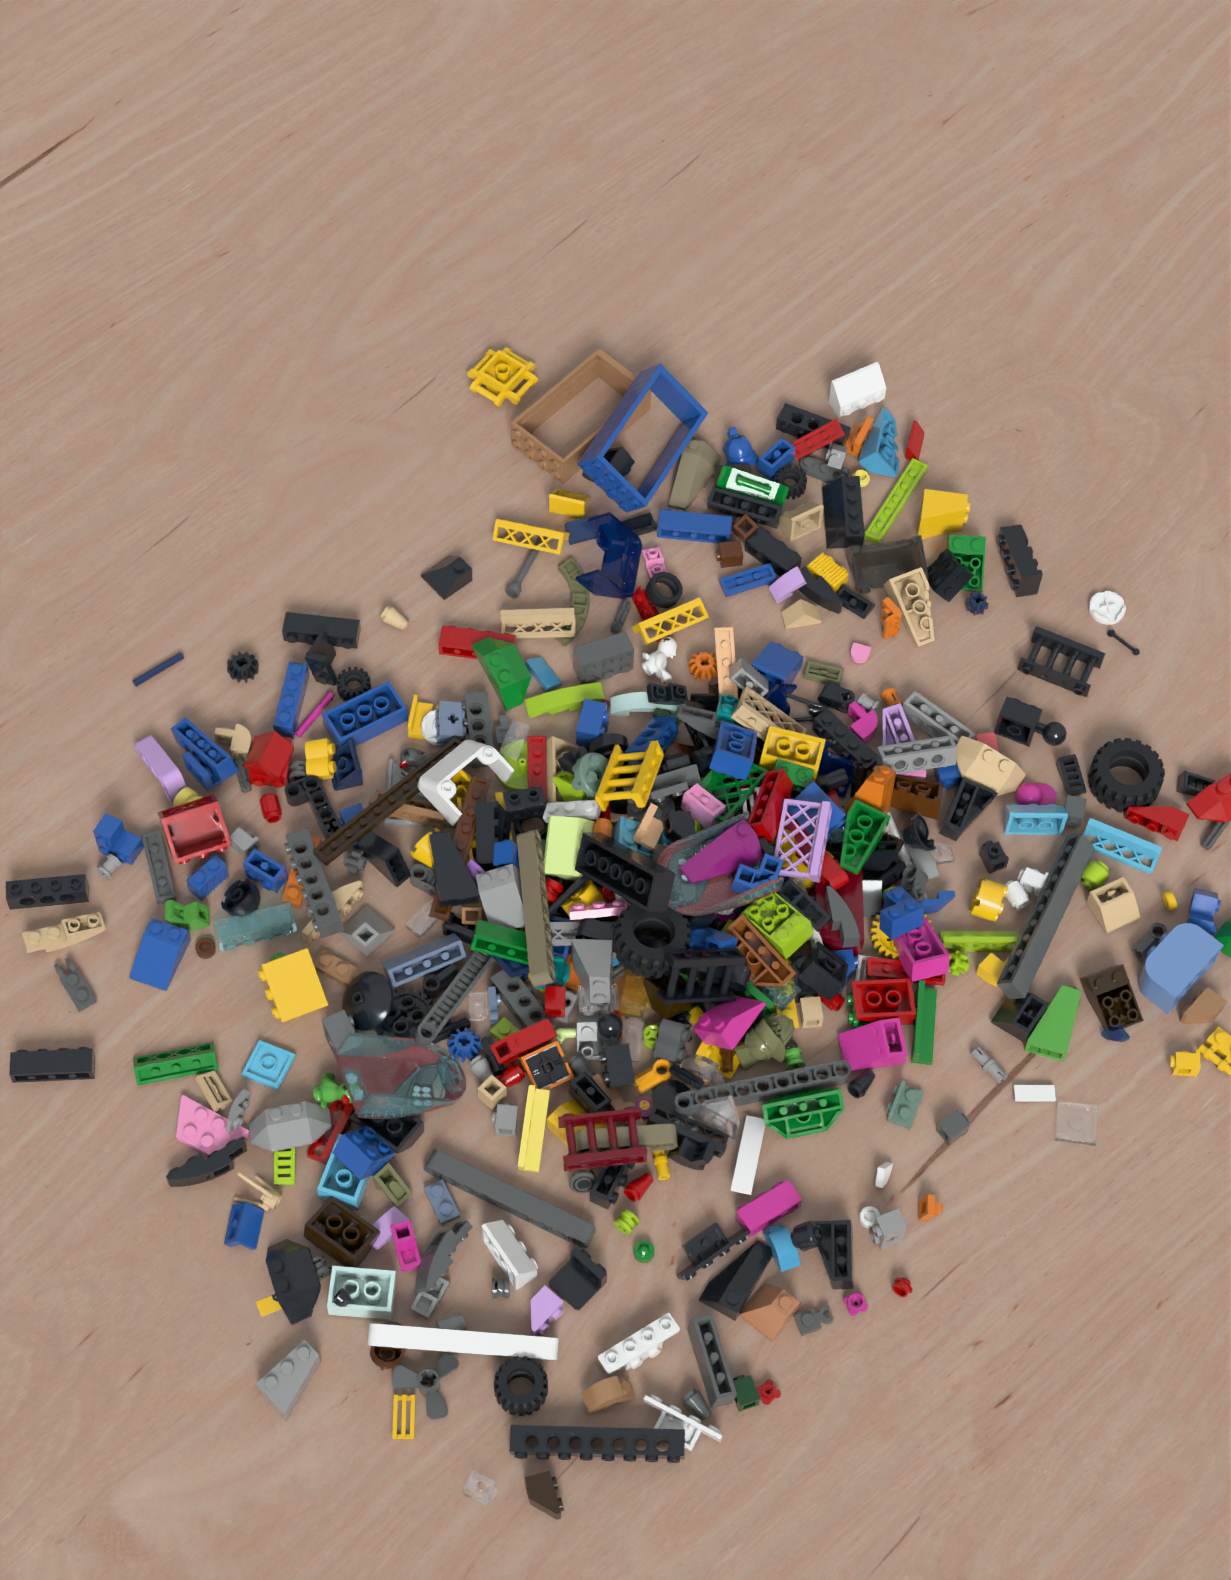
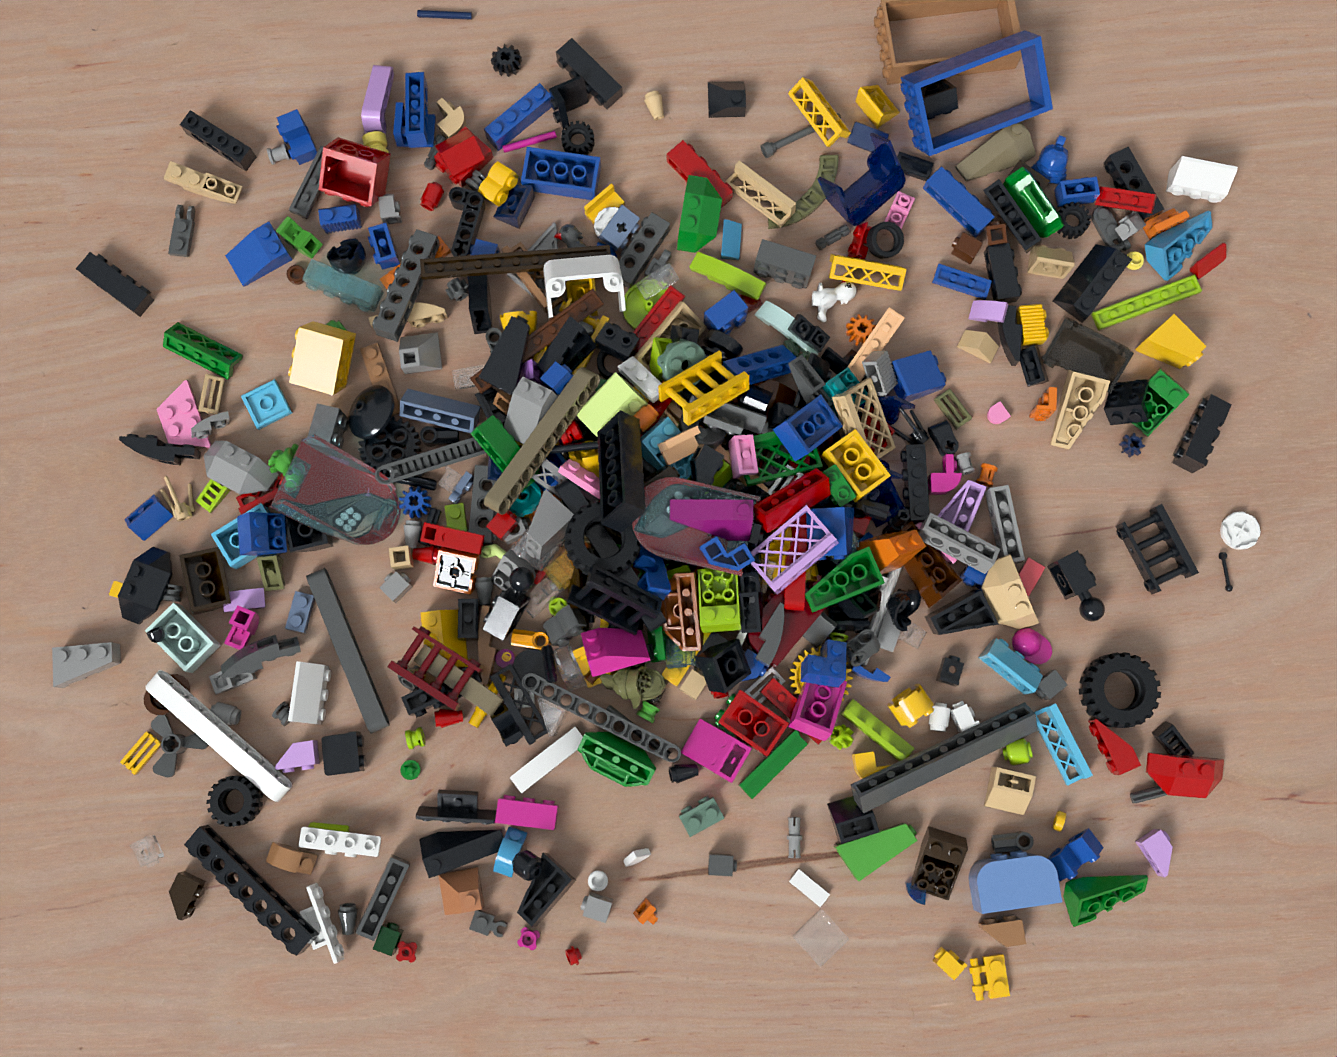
camera: 40 degrees right, 20 degrees up
(533, 1129) = (406, 611): light yellow fence -> none
(1066, 764) = (1082, 655): black slope -> none

